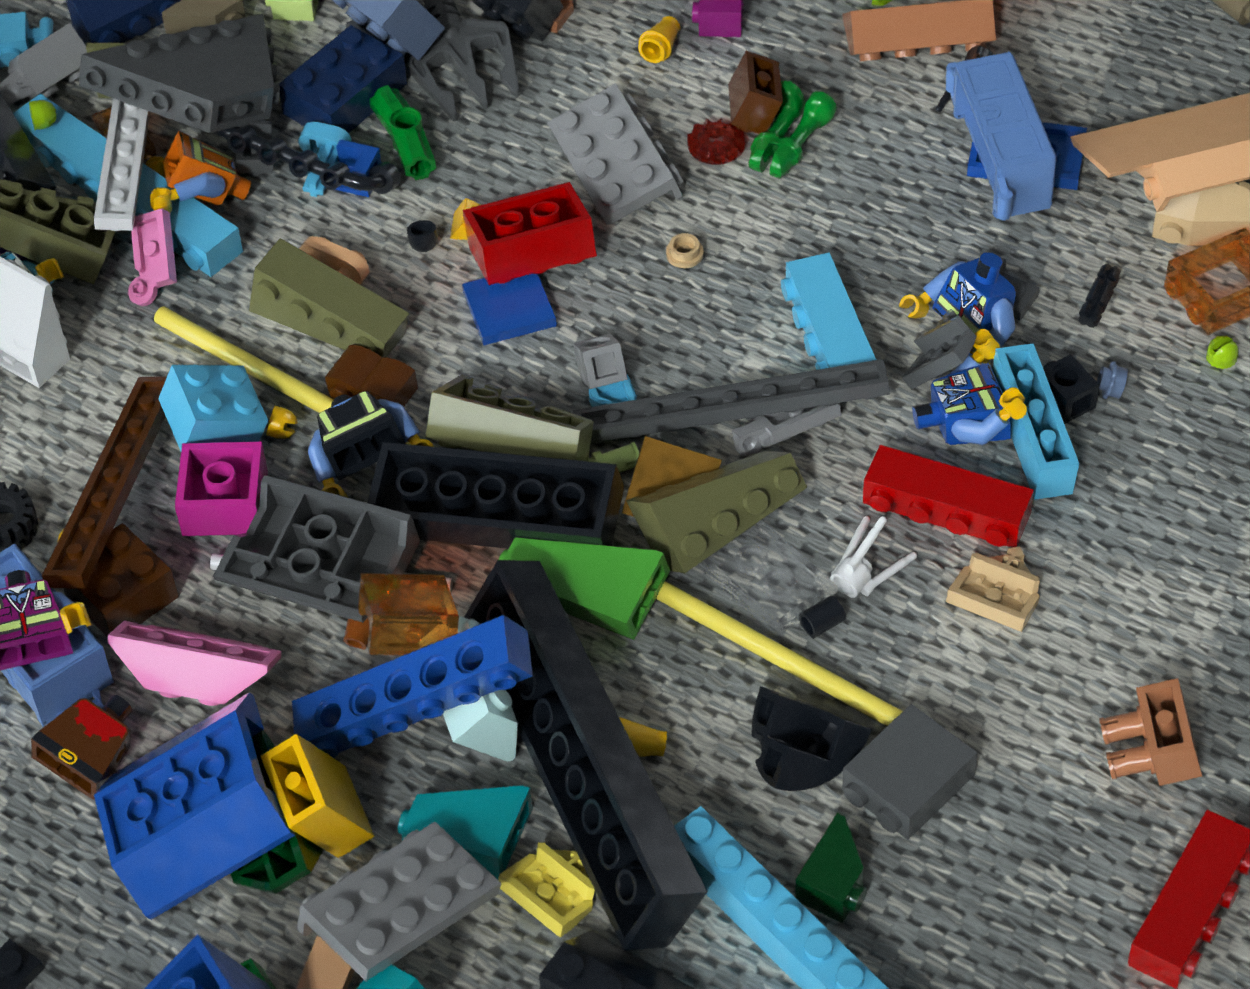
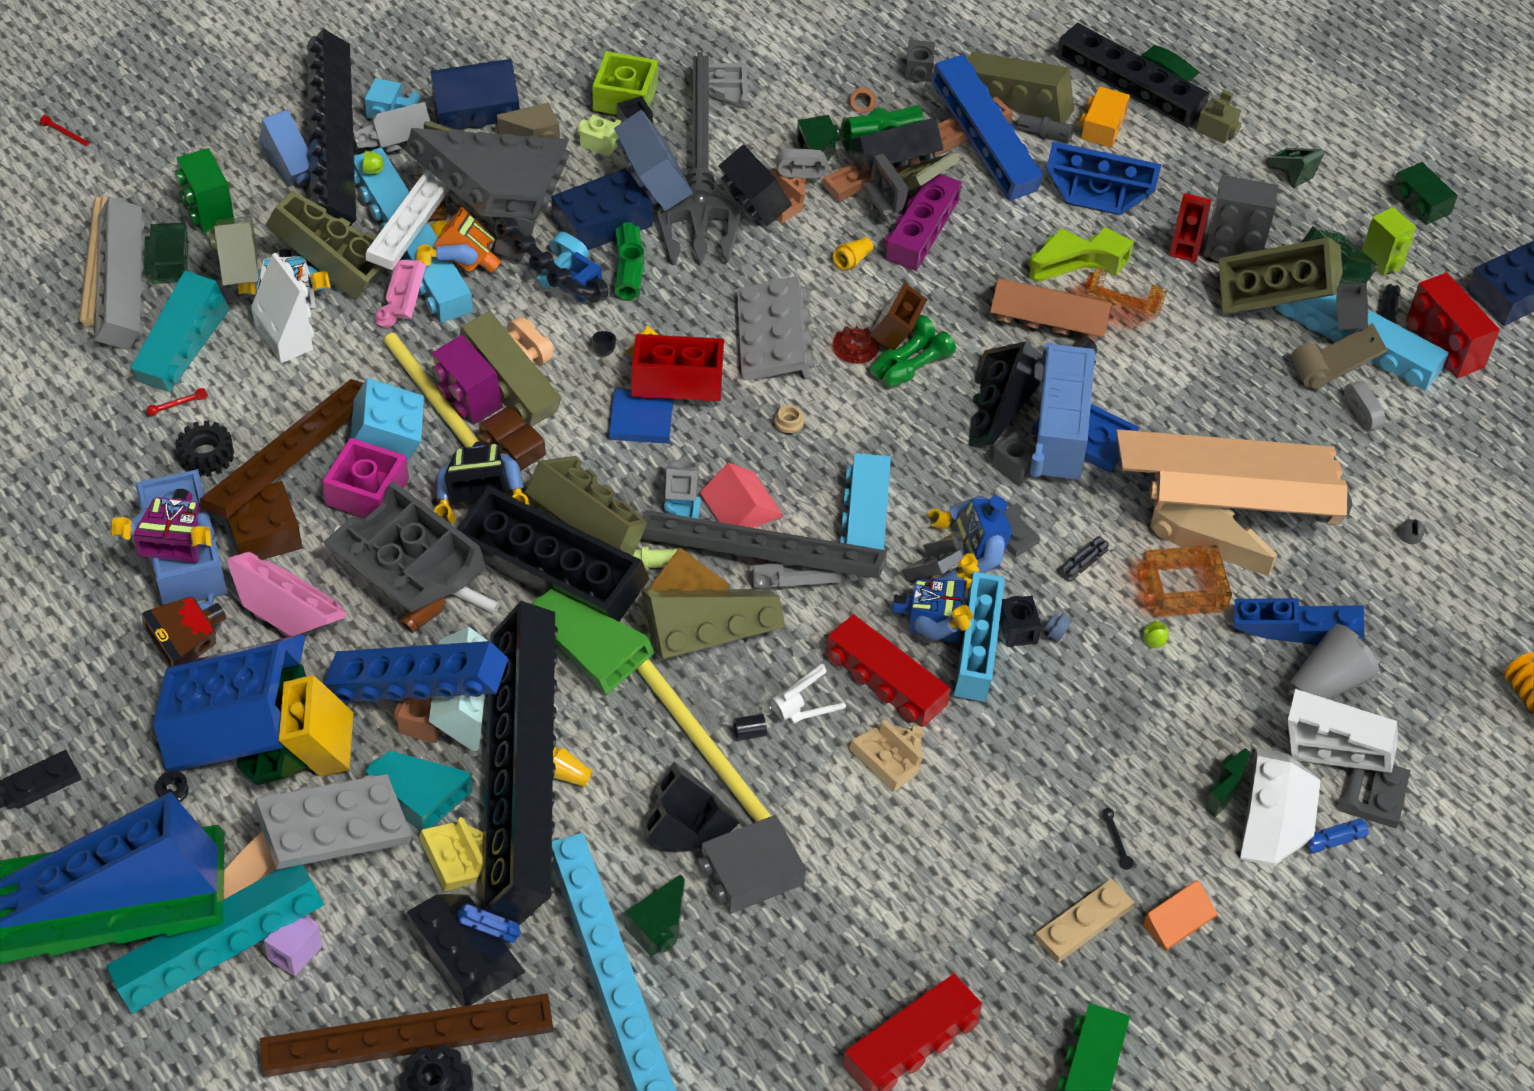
camera: 15 degrees right, 0 degrees up
(167, 947) = (177, 779): none -> black bush
(278, 423) = (432, 447): yellow hinge -> none
(287, 329) = (466, 380): none -> magenta brick
(406, 611) = (435, 614): clear orange panel -> none
(436, 756) = (414, 726): none -> nougat brick
(639, 953) = (488, 923): none -> blue axle
(673, 361) = (739, 498): none -> coral slope
(914, 132) = (1007, 382): none -> black wedge
(966, 208) = (1013, 458): none -> dark grey brick
(1168, 731) = (955, 907): nougat brick -> none

